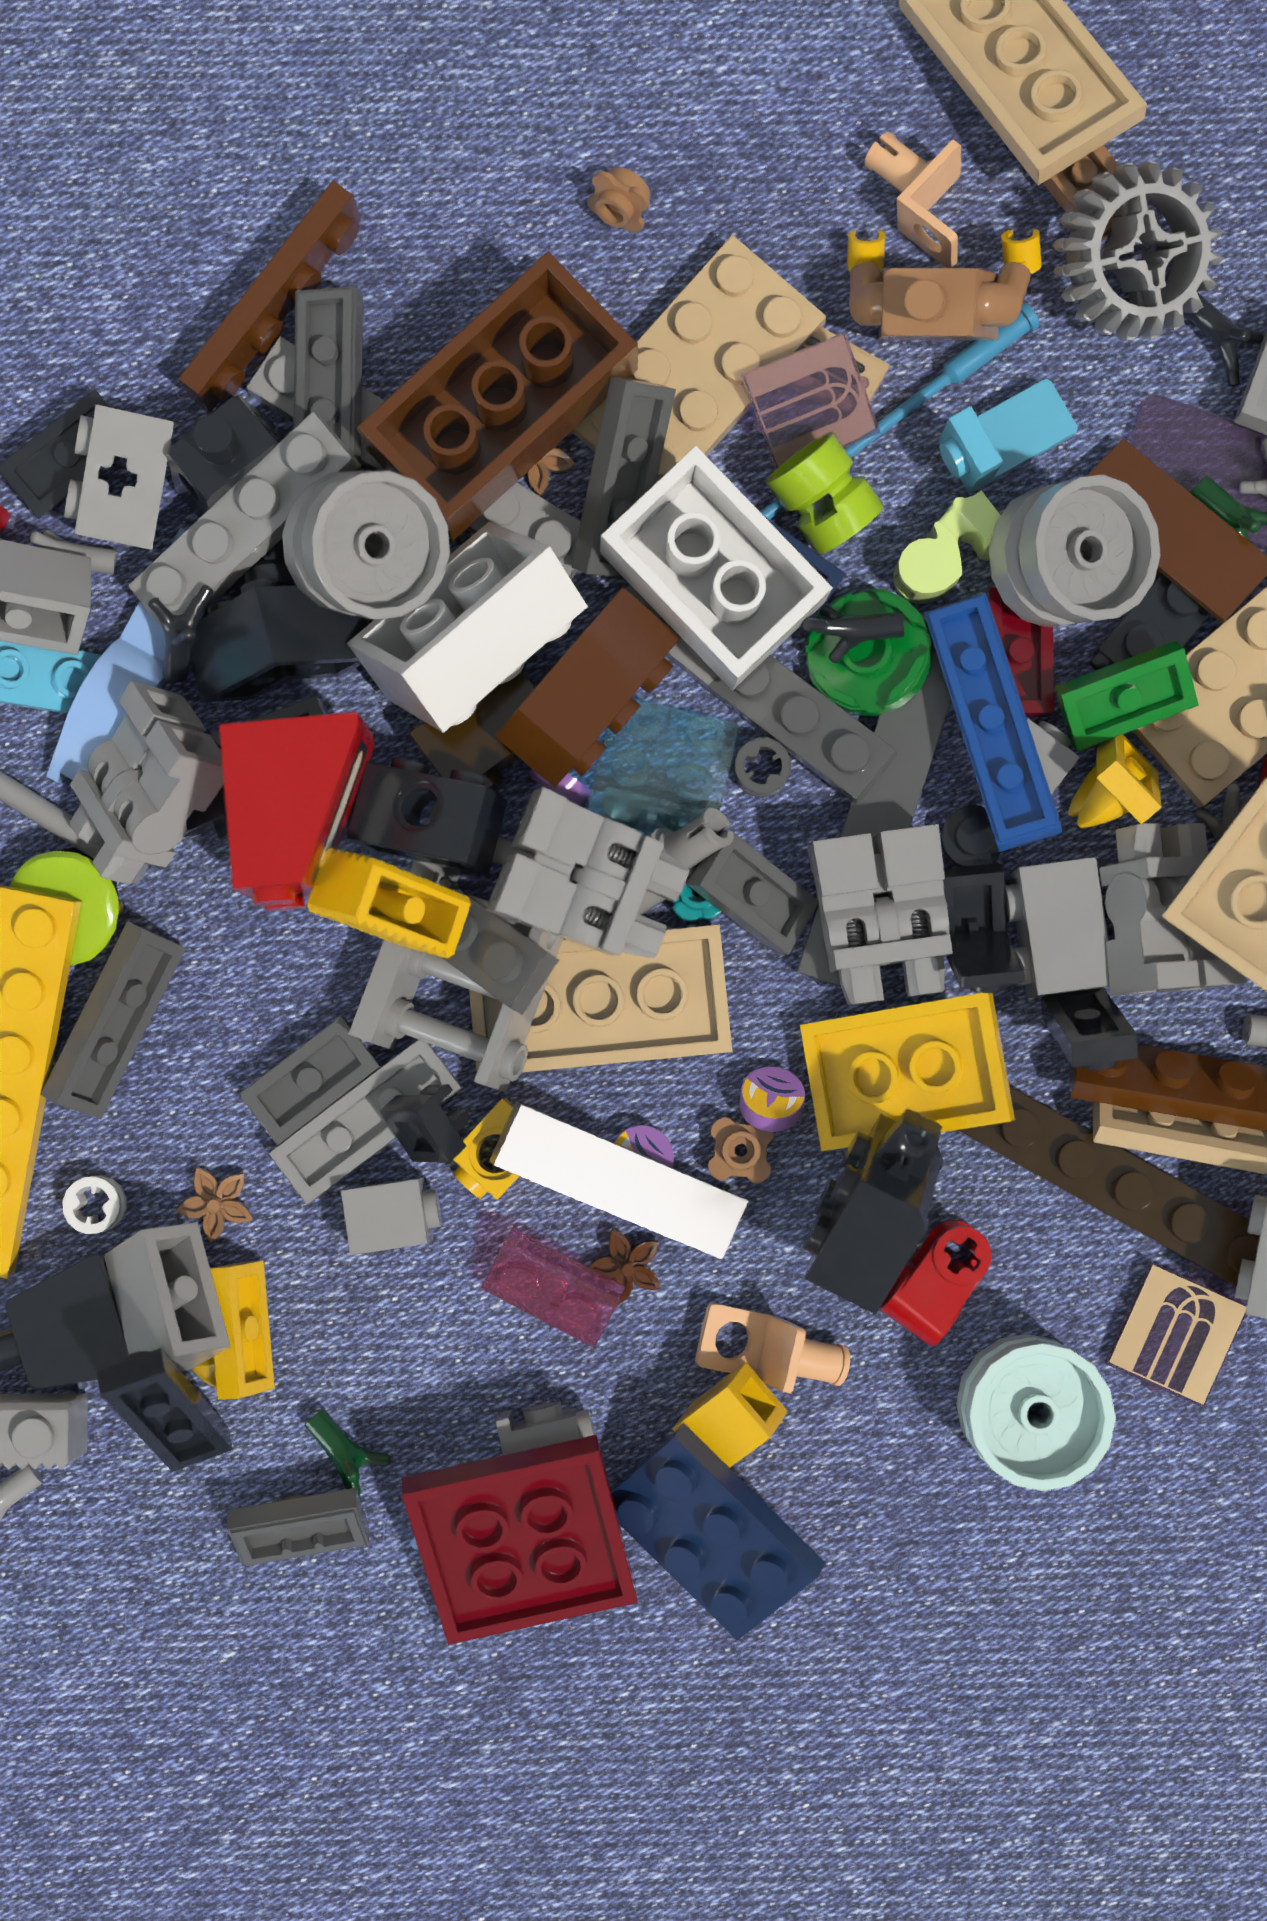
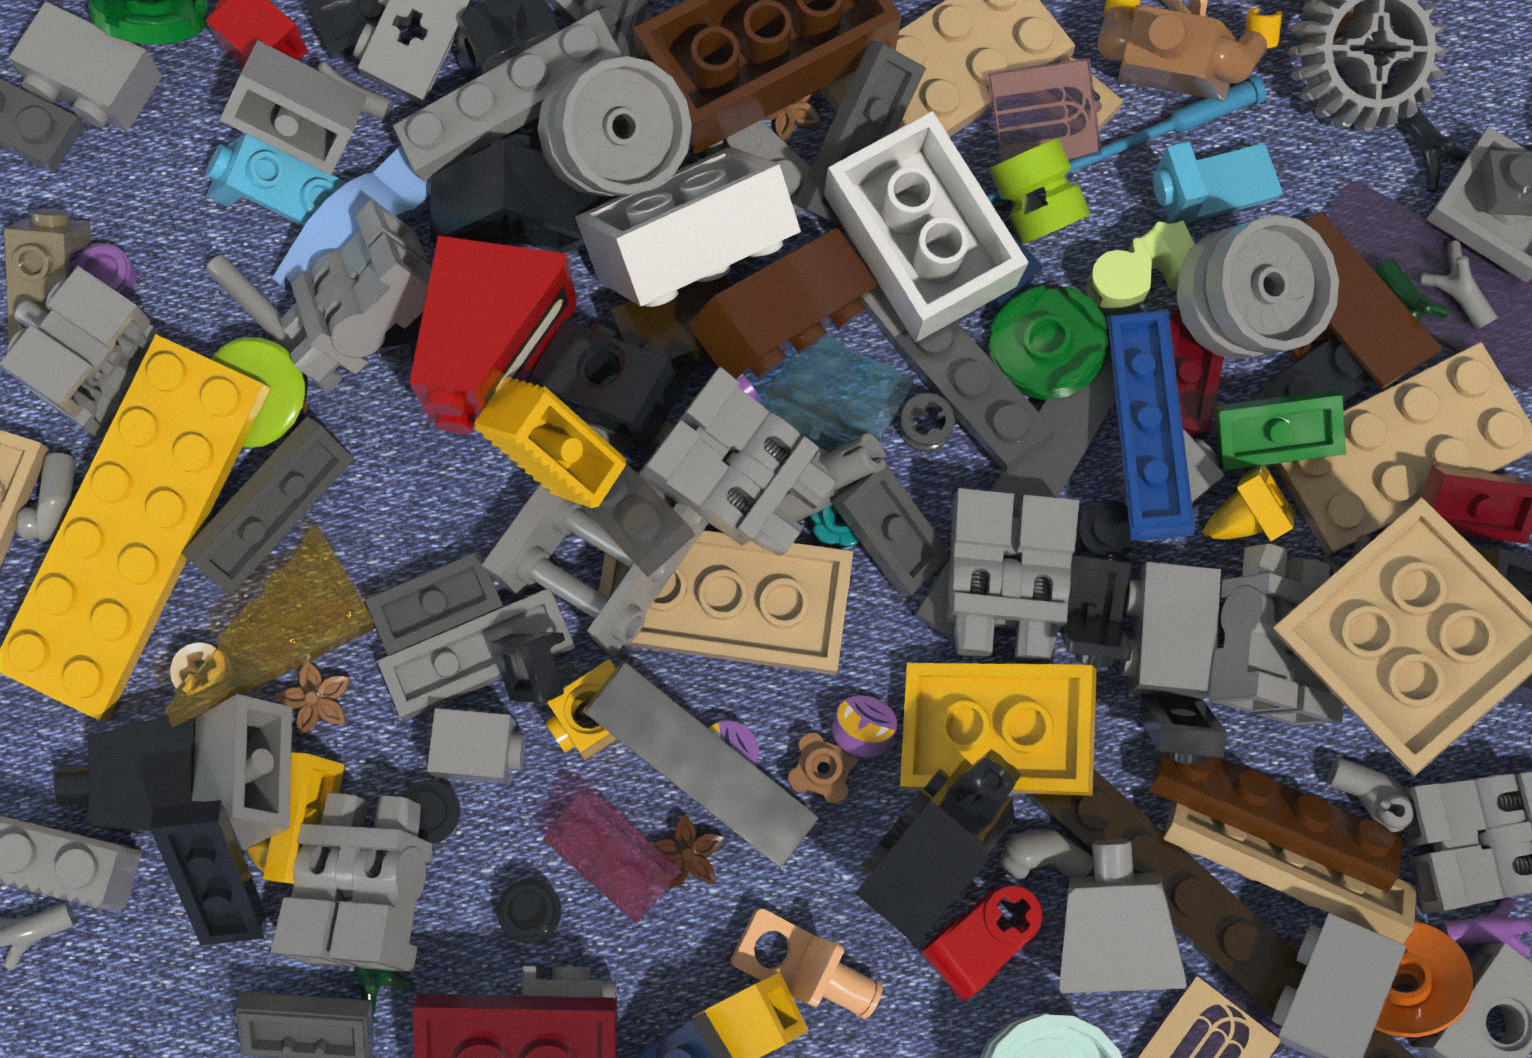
camera: 10 degrees right, 10 degrees down
(175, 1130) = (294, 620): none -> clear yellow wing
(179, 633) = (426, 174): black bar -> none
(311, 1385) = (355, 886): none -> light grey hips
(360, 1288) = (439, 809): none -> black plate
(486, 1360) = (529, 911): none -> black plate
(855, 628) = (1041, 314): black bar -> none
(977, 1176) = (1043, 848): none -> light grey arm
(1068, 1242) = (1118, 928): none -> light grey torso

